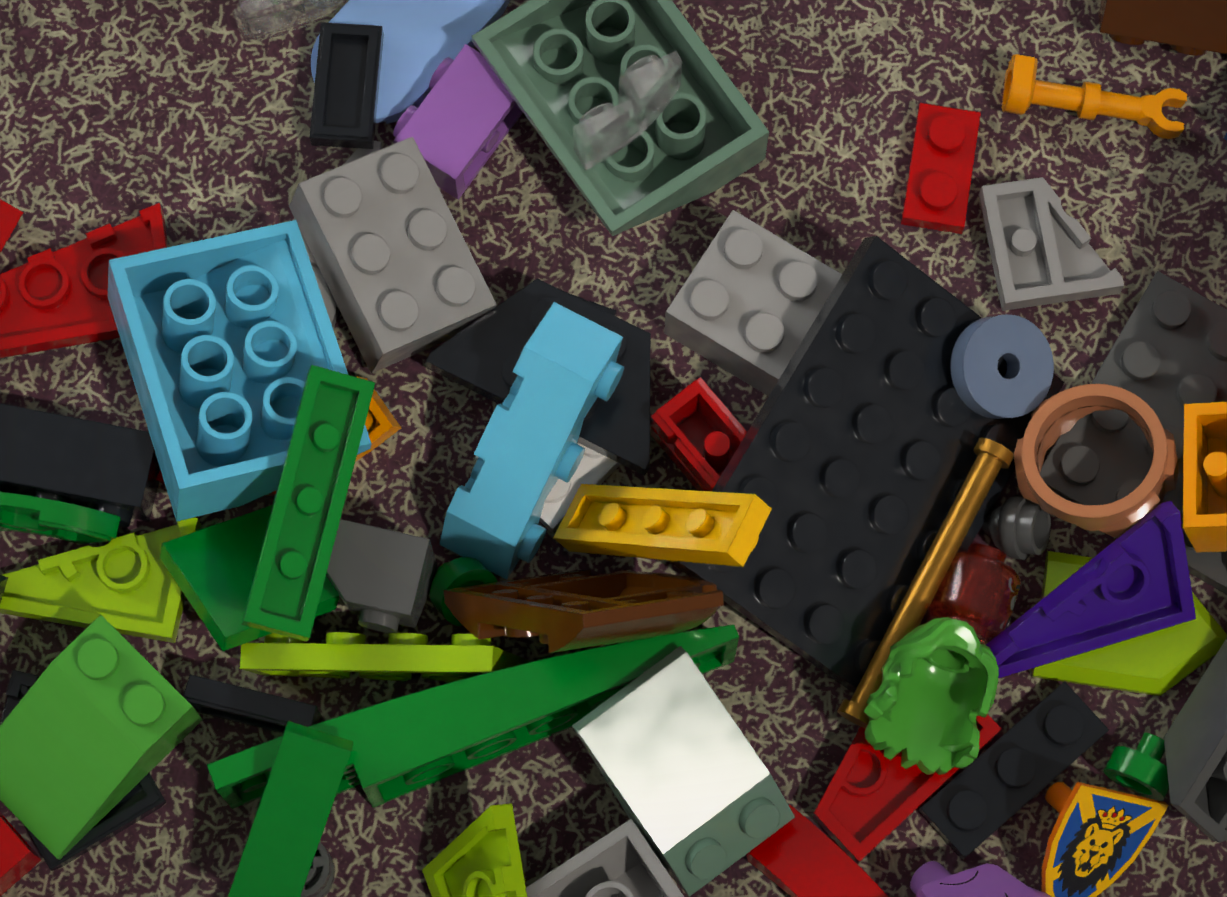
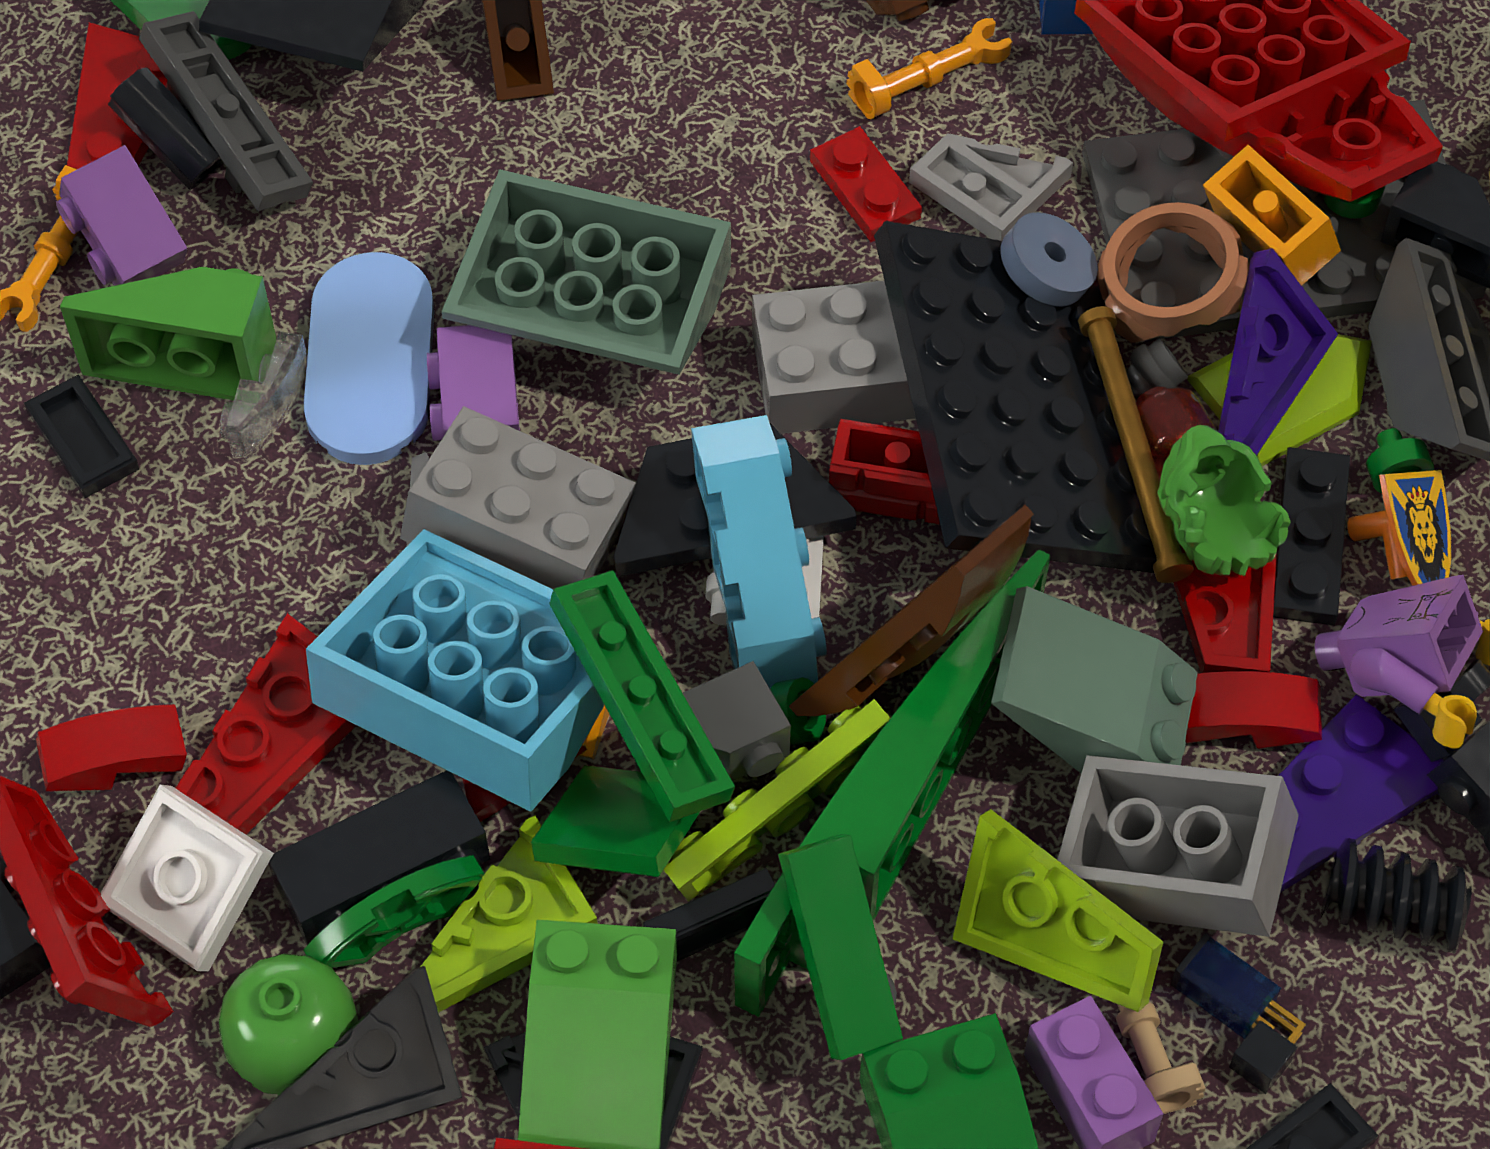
camera: 40 degrees left, 15 degrees down
(346, 85) = (363, 428): black tile -> none
(642, 97) = (618, 269): clear slope -> none
(663, 524) = (917, 522): yellow plate -> none

